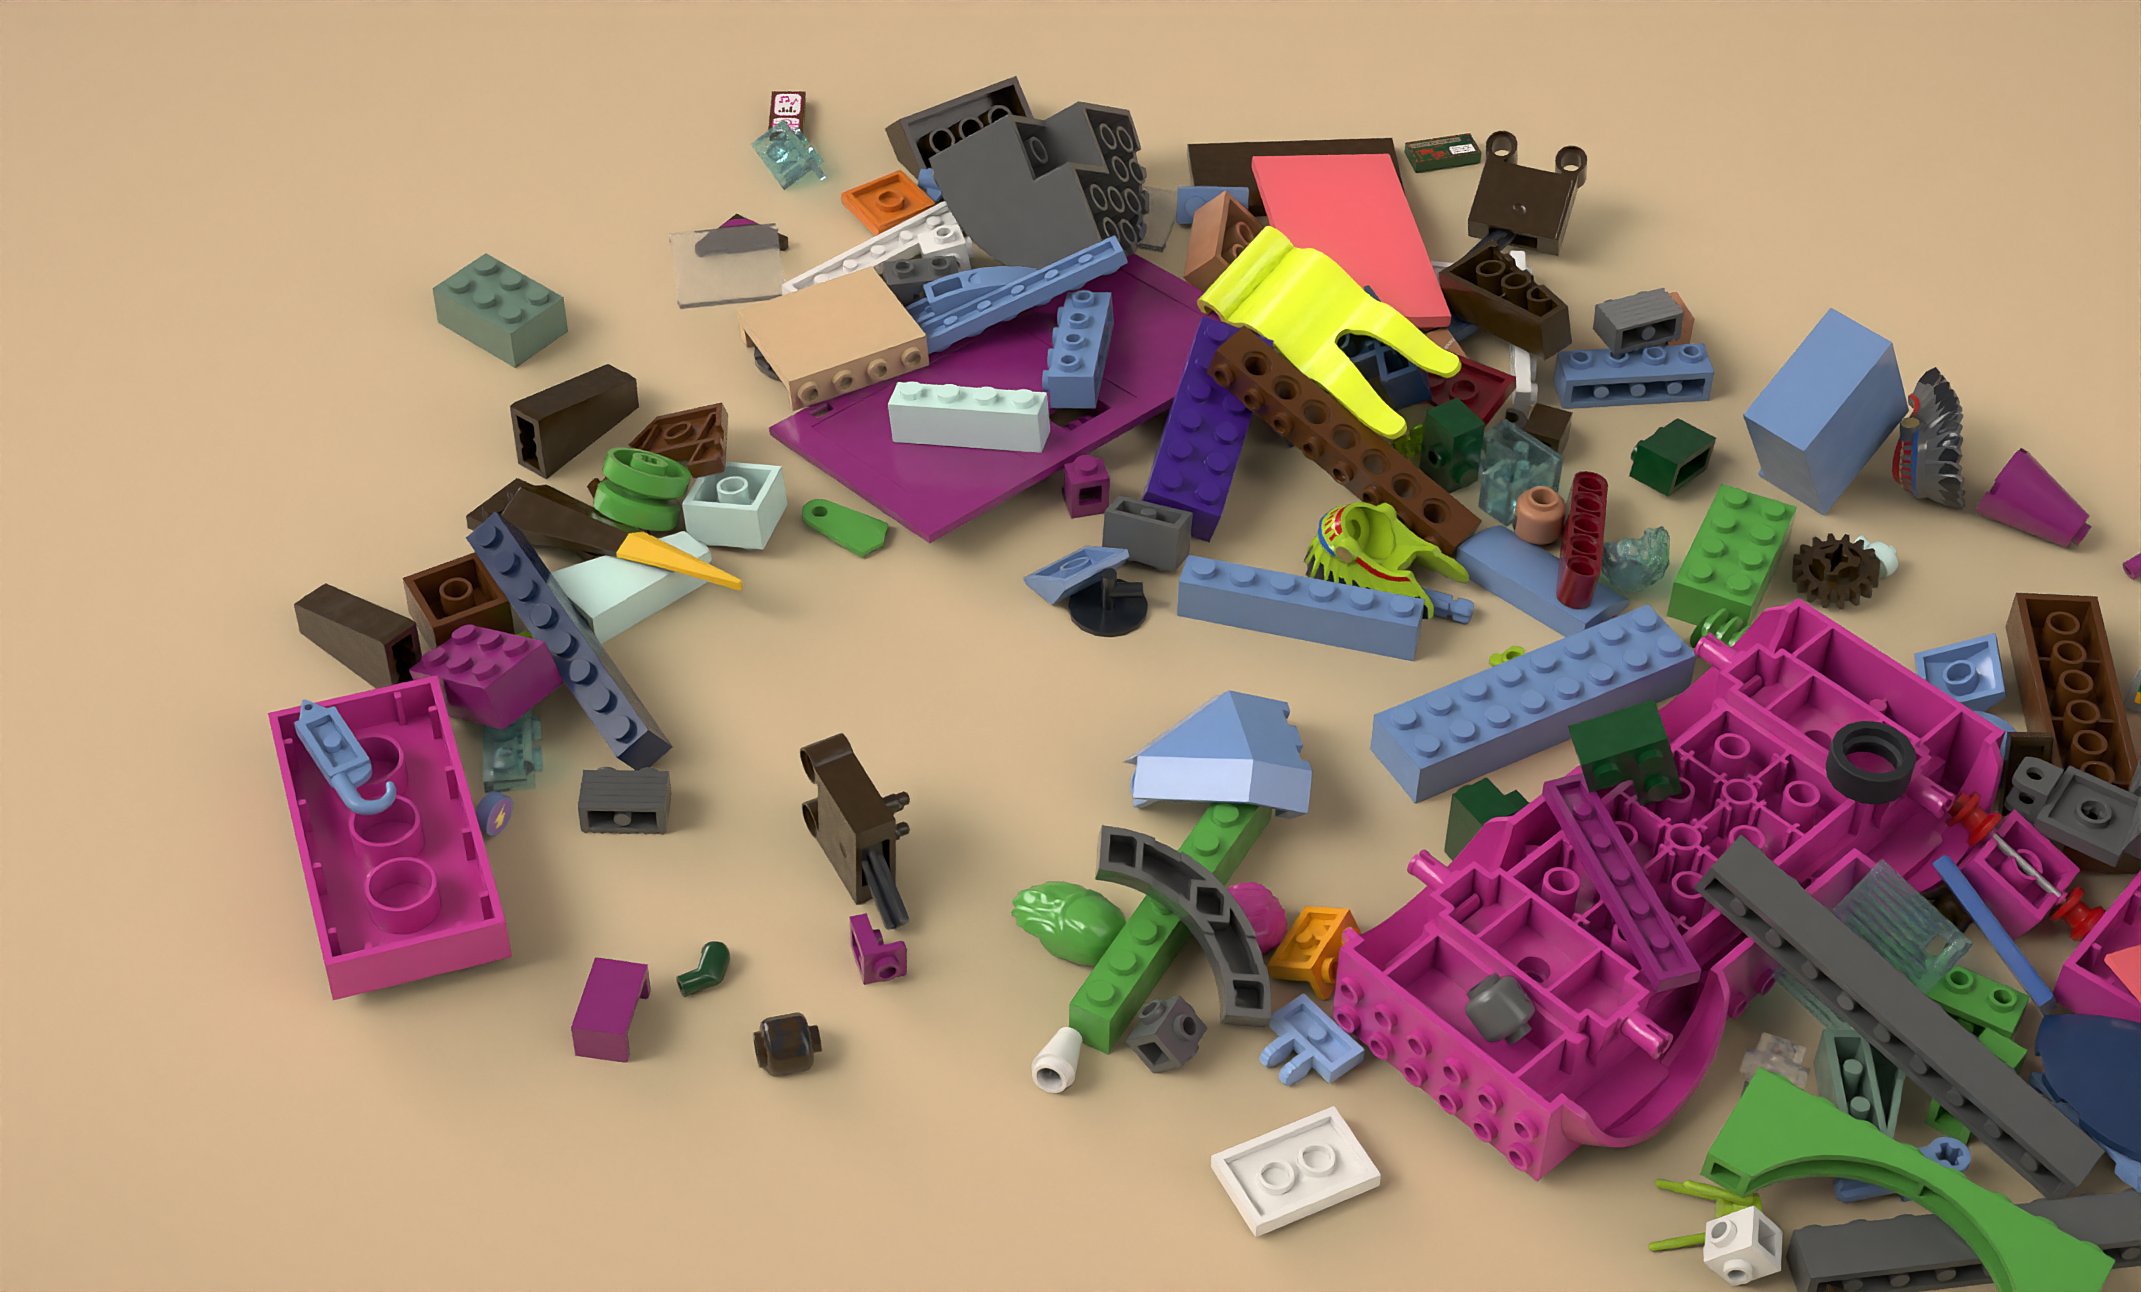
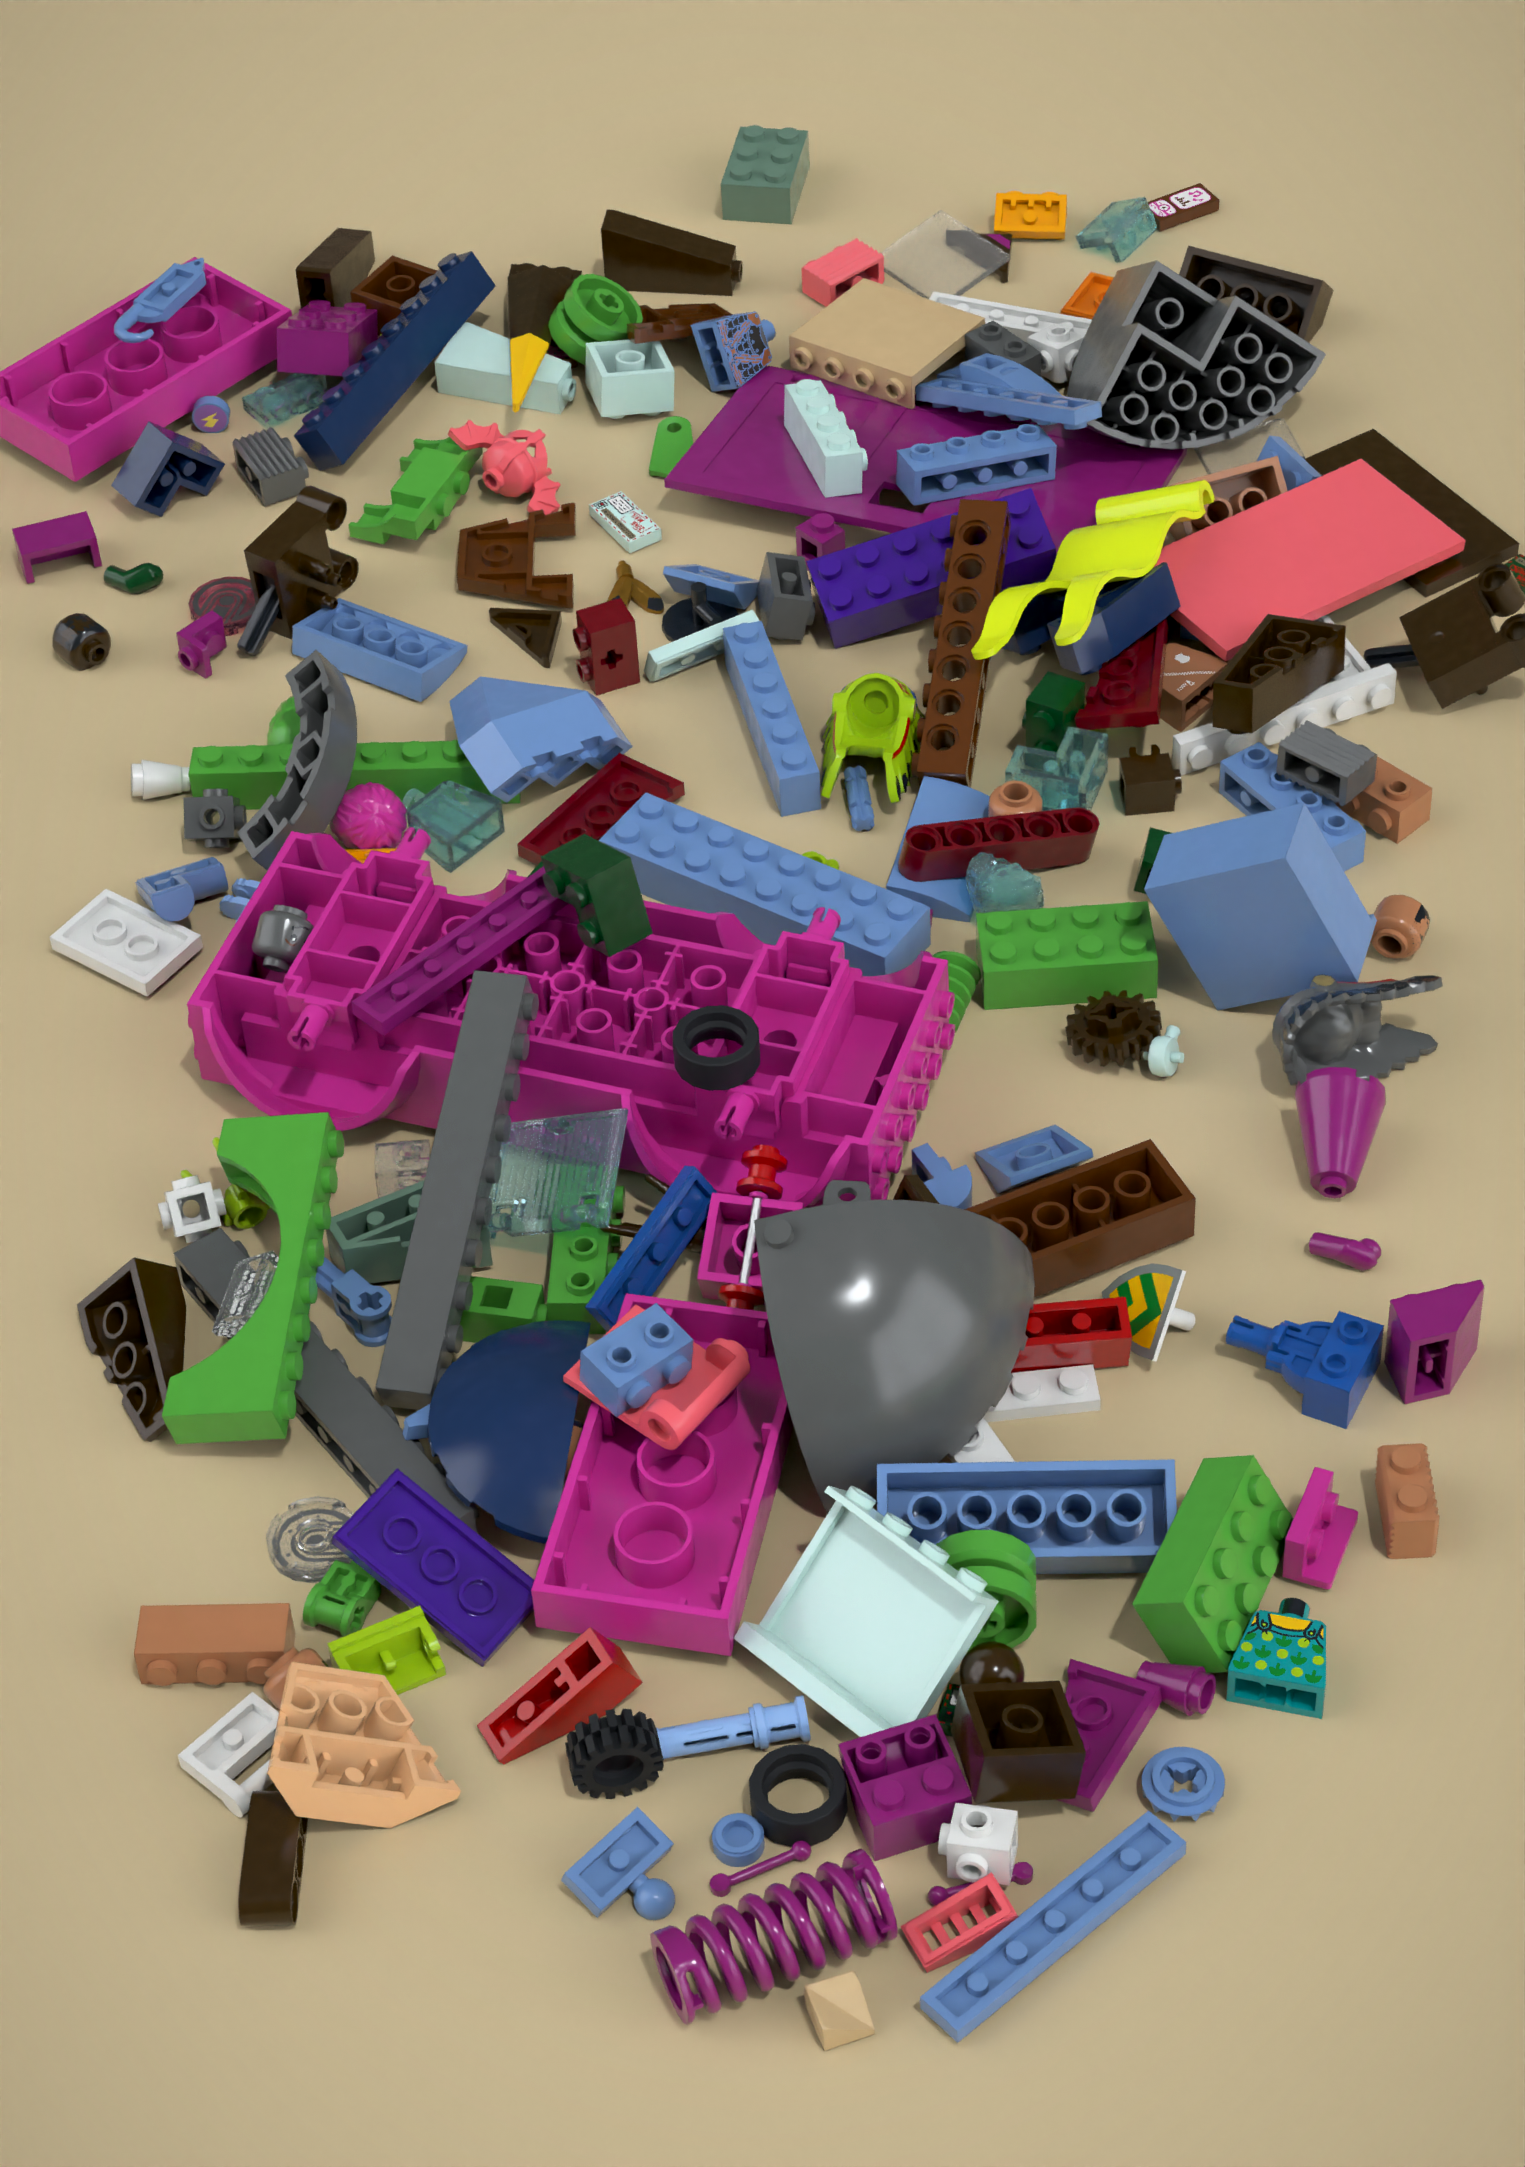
camera: 65 degrees right, 0 degrees up
(574, 878) = (163, 463): none -> dark blue brick
(696, 325) = (840, 270): none -> coral brick
(723, 192) = (1031, 215): none -> light orange bracket
(752, 417) = (733, 348): none -> medium blue torso
(771, 695) = (423, 495): none -> bright green bracket
(801, 628) = (509, 465): none -> coral helmet
(811, 914) = (227, 597): none -> tile
(921, 696) = (501, 558): none -> reddish brown wing
(925, 596) = (625, 522): none -> light aqua tile
(981, 828) = (379, 649): none -> medium blue slope
(1030, 632) = (631, 588): none -> pearl gold piece
(1034, 715) = (530, 629): none -> dark brown tile
(1137, 664) = (607, 647): none -> dark red brick
(1163, 613) = (691, 649): none -> light aqua tile
(1248, 1104) = (176, 890): none -> medium blue brick
(1291, 866) = (456, 821): none -> clear light blue torso
(1343, 768) = (599, 805): none -> dark red wing
(1912, 1237) = (245, 1292): none -> clear slope

